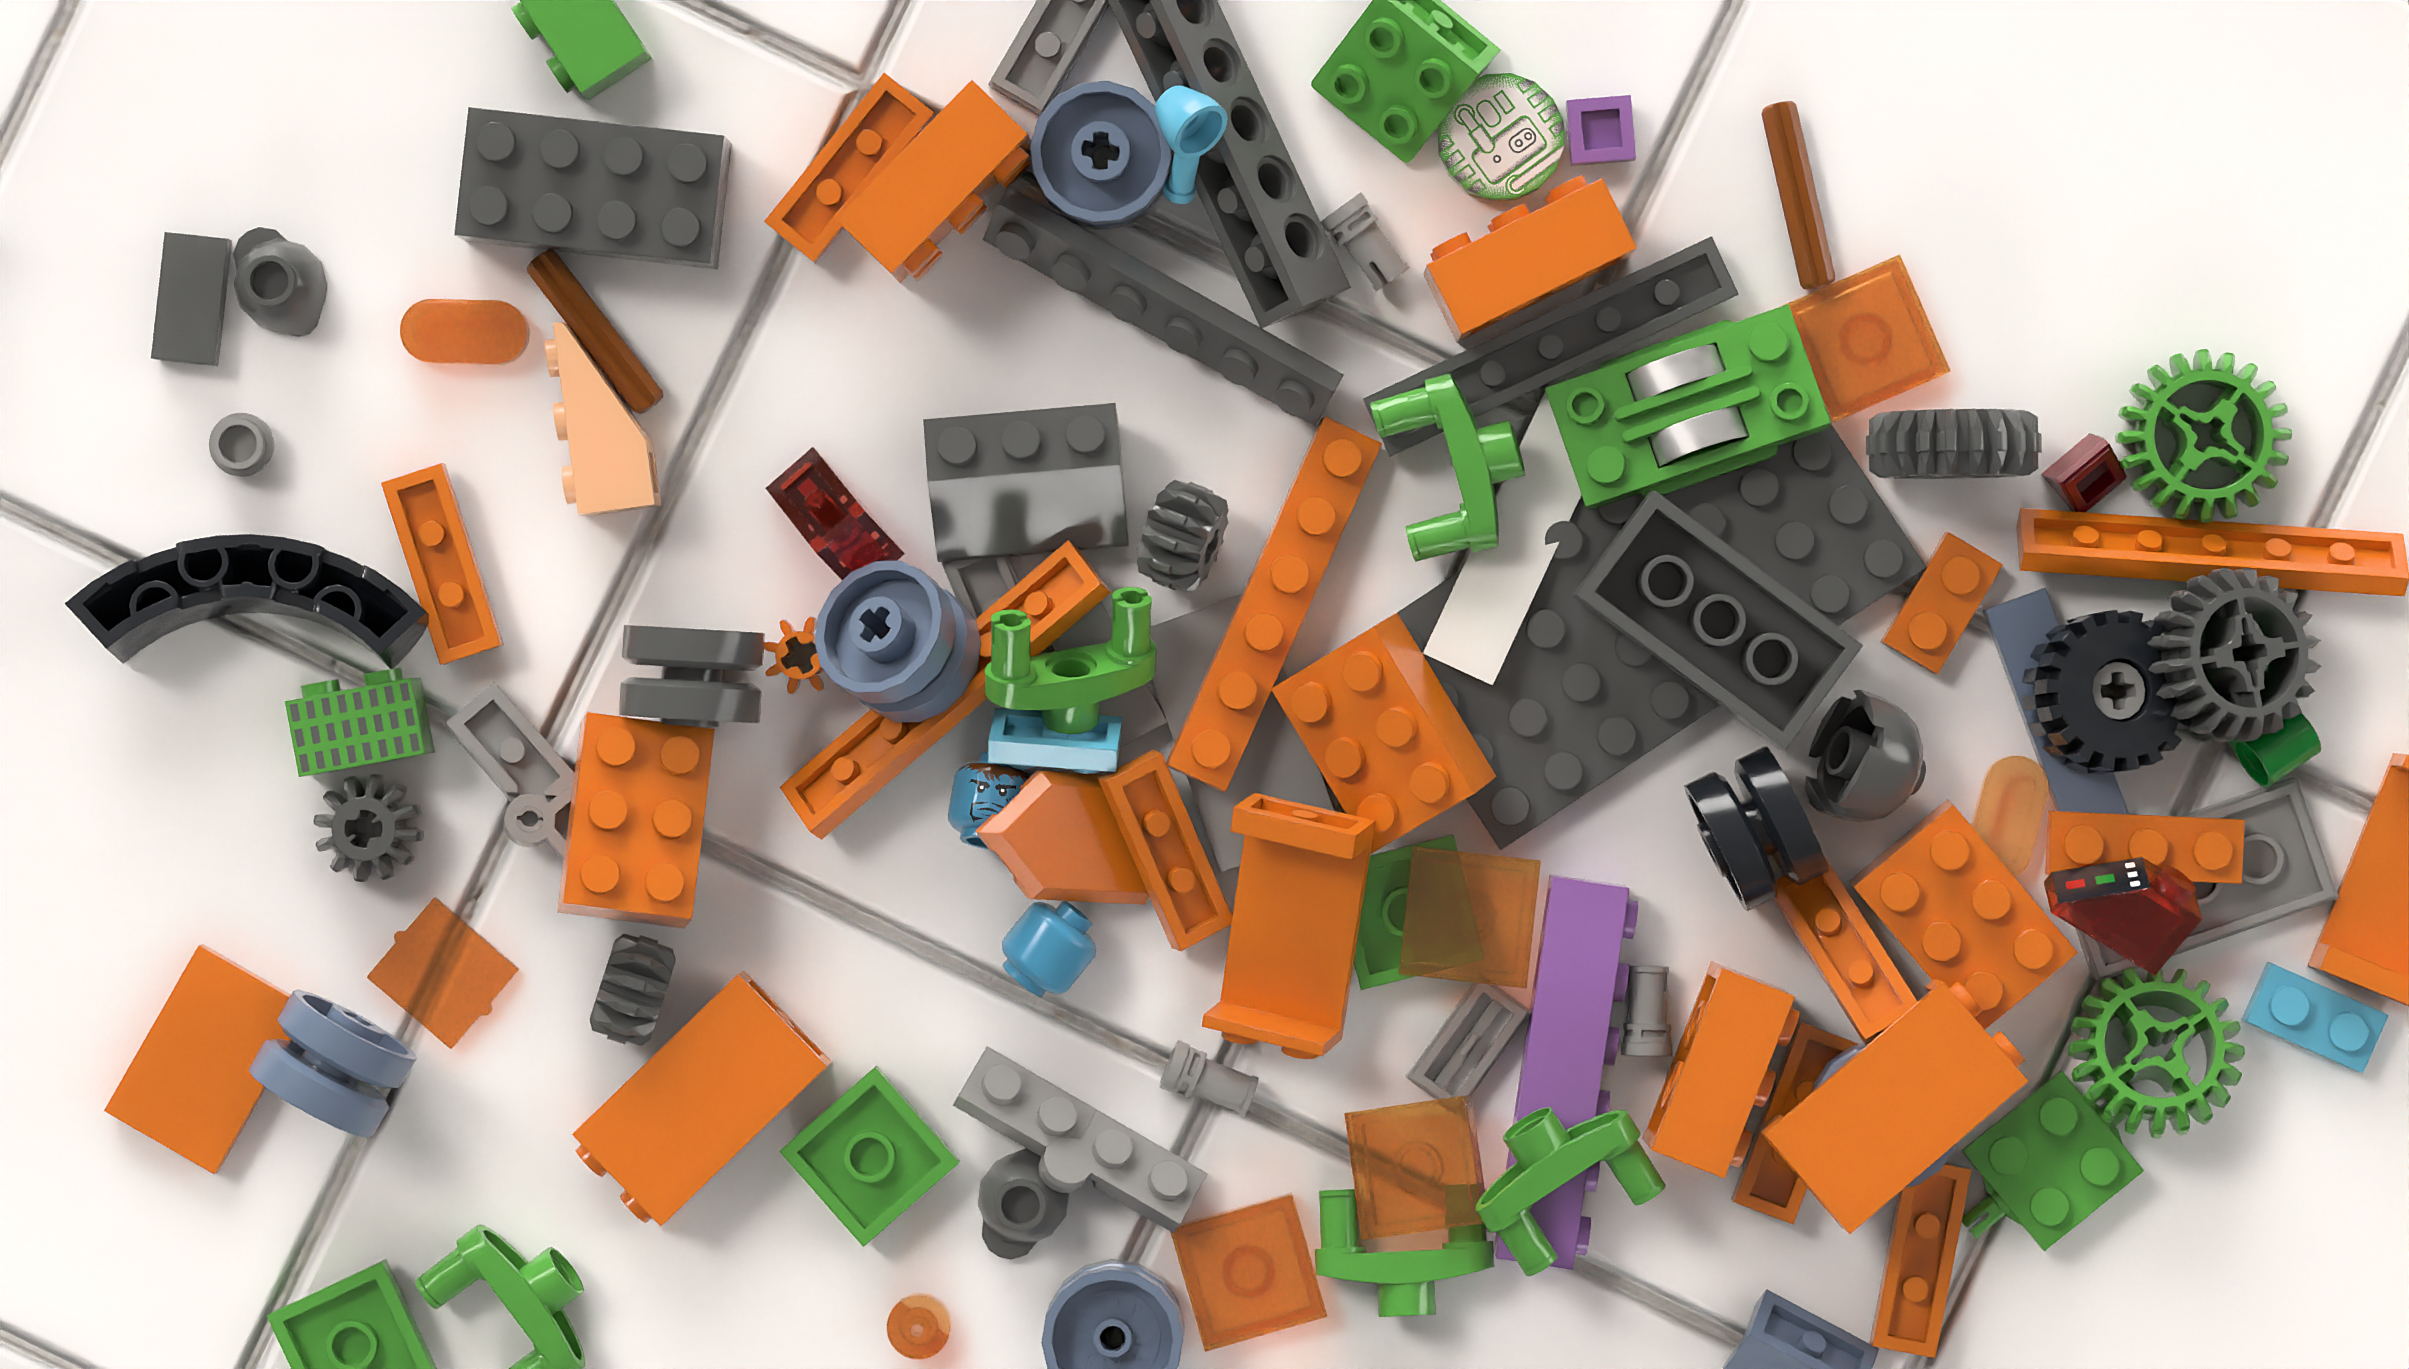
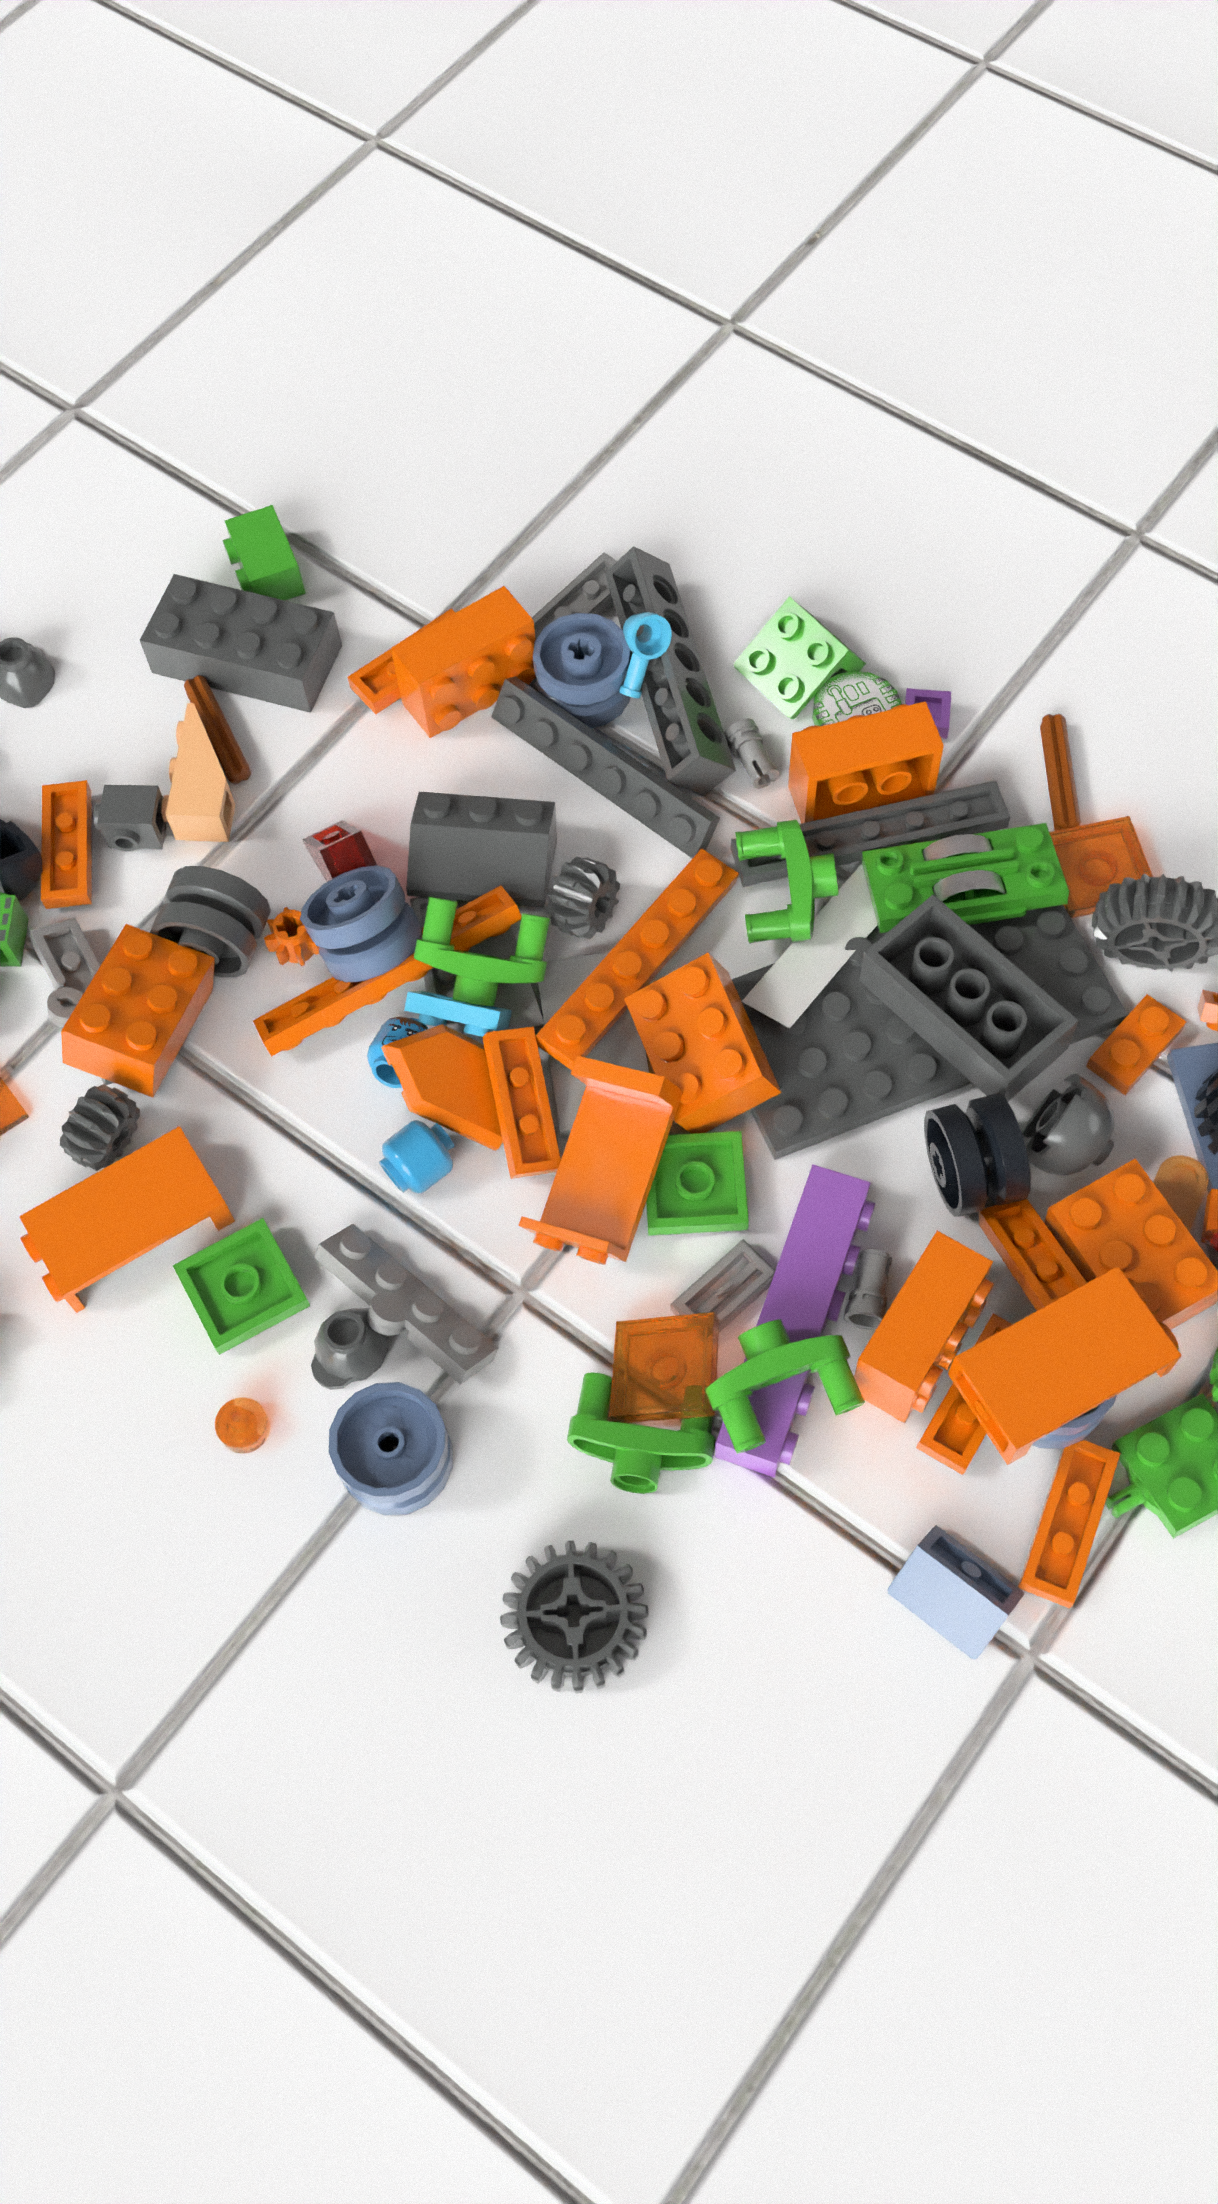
camera: 15 degrees right, 25 degrees down
(464, 331) = (132, 718): clear orange tile -> none
(524, 518) = (131, 817): none -> dark grey brick
(1192, 1073) = (504, 1270): light grey pin -> none
(1248, 1271) = (513, 1432): clear orange tile -> none
(1469, 916) = (742, 1185): clear orange tile -> none

